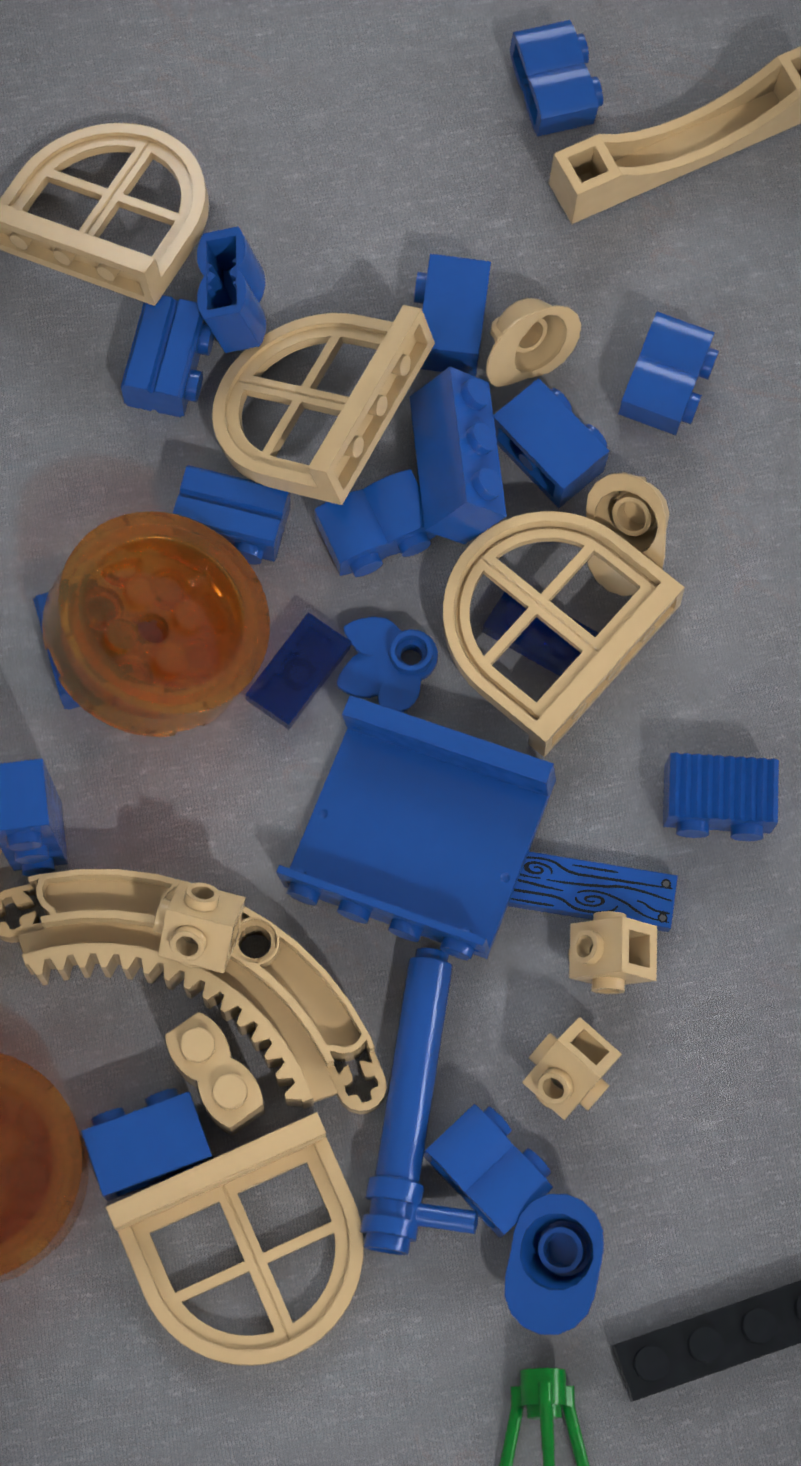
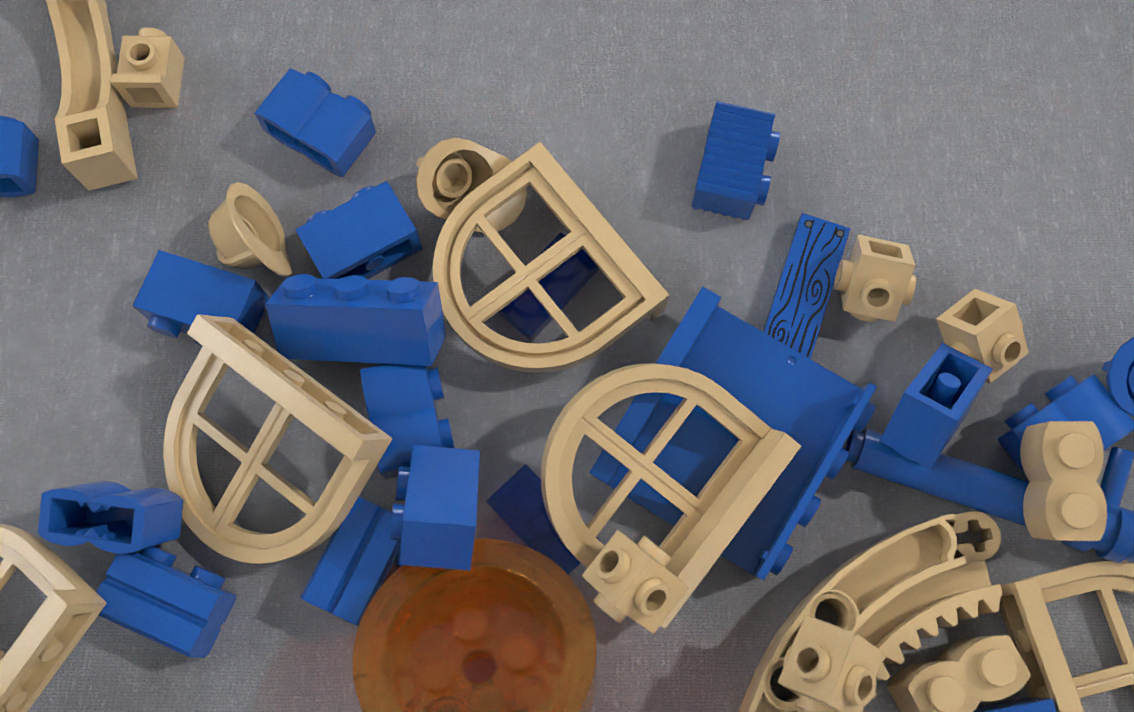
camera: 75 degrees left, 0 degrees up
(251, 745) = (635, 581): none -> tan brick
(288, 560) = (439, 507): none -> blue brick
(330, 815) = (708, 518): none -> tan window
(379, 665) = (527, 434): blue plate -> none
(405, 1140) = (1063, 488): none -> tan brick
(481, 1016) = (935, 405): none -> blue brick
(689, 203) = (149, 70): none -> tan brick

